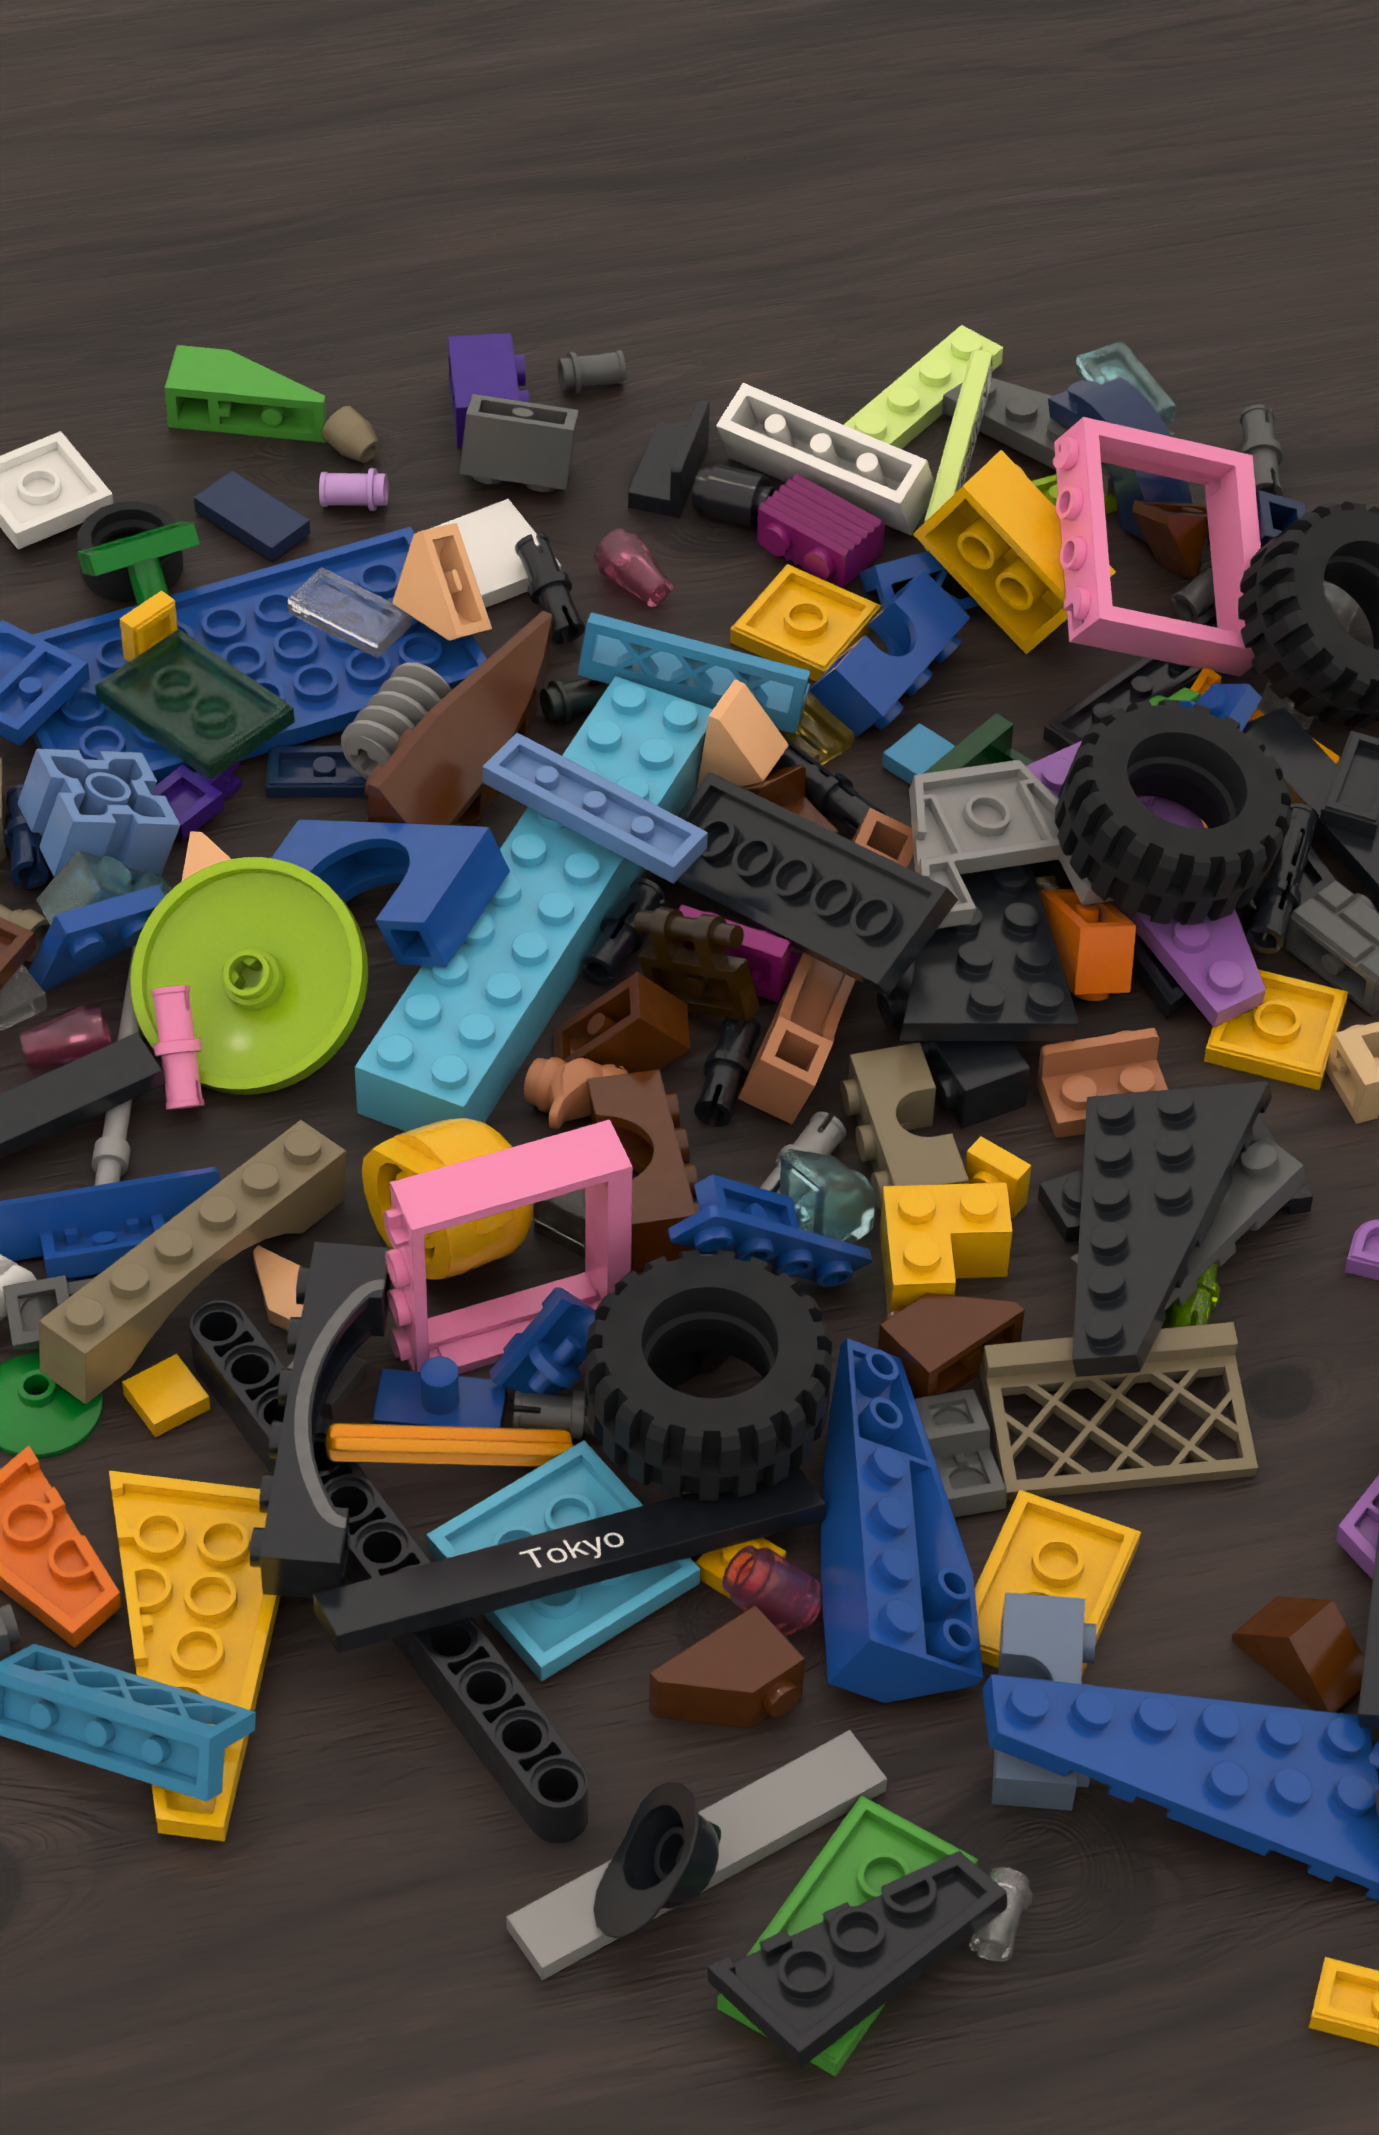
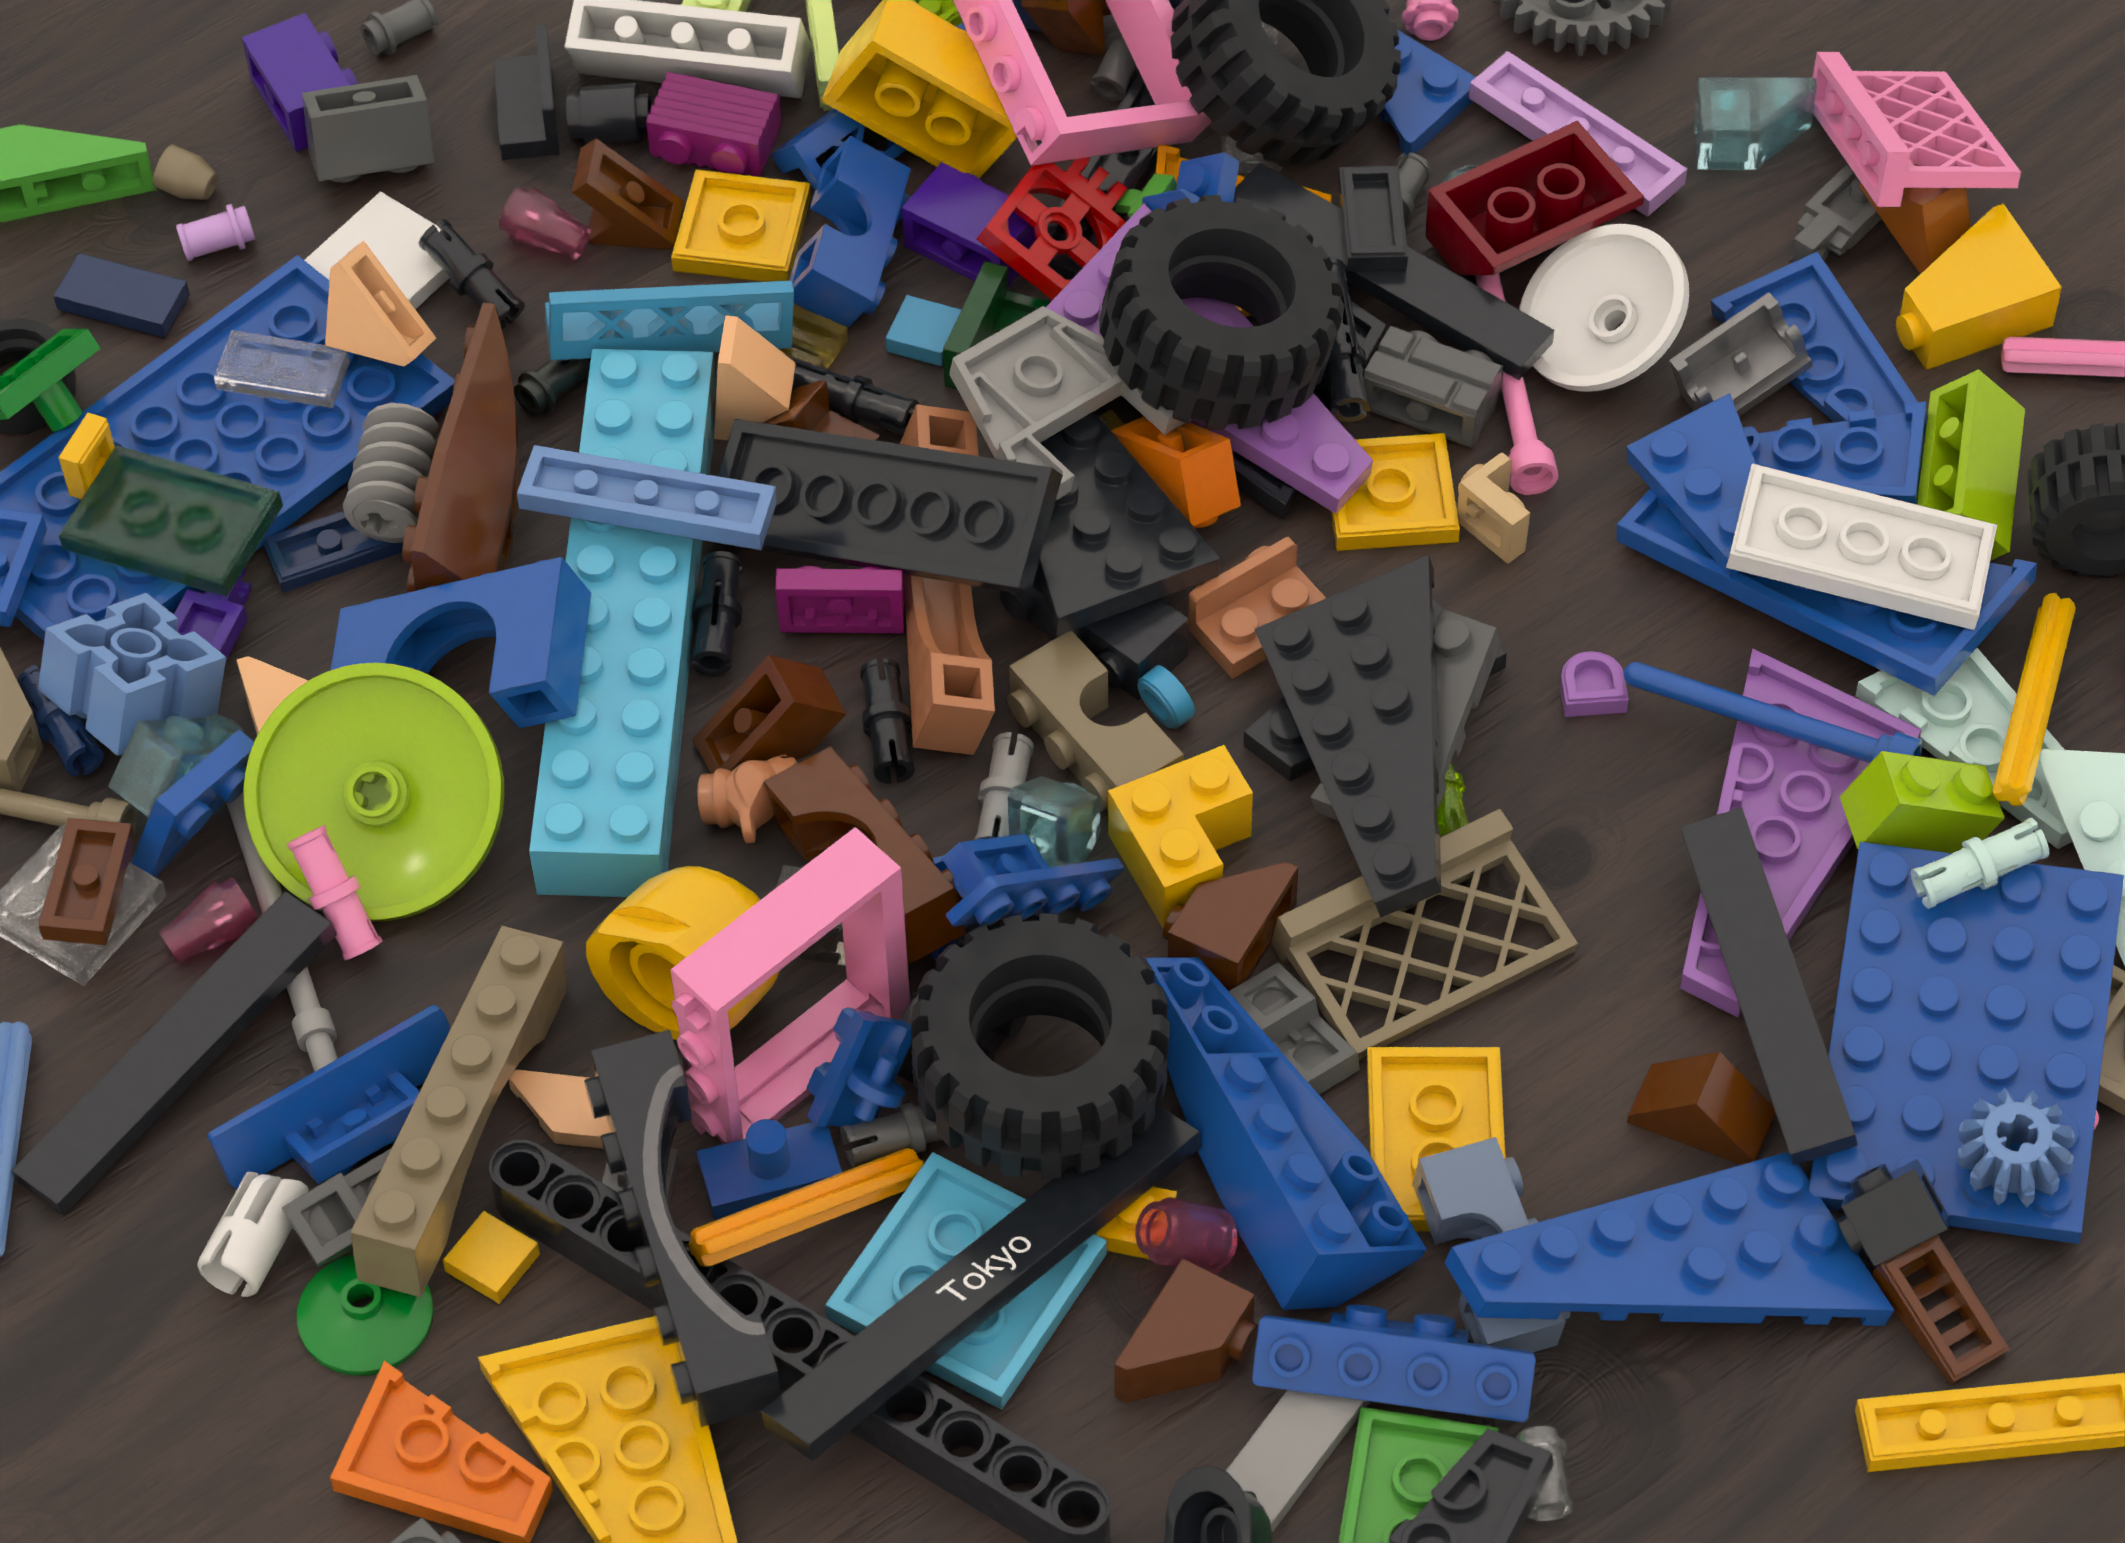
camera: 20 degrees left, 5 degrees up
(703, 976) = (828, 638): dark brown plate -> none
(714, 571) = (625, 201): none -> reddish brown slope
(905, 1766) = (1394, 1363): none -> blue bracket
(981, 1121) = (1166, 697): none -> dark azure tile
(993, 1164) = (1201, 731): yellow plate -> none
(1000, 675) = (948, 217): none -> dark purple brick
(1107, 687) = (1081, 199): none -> red piece

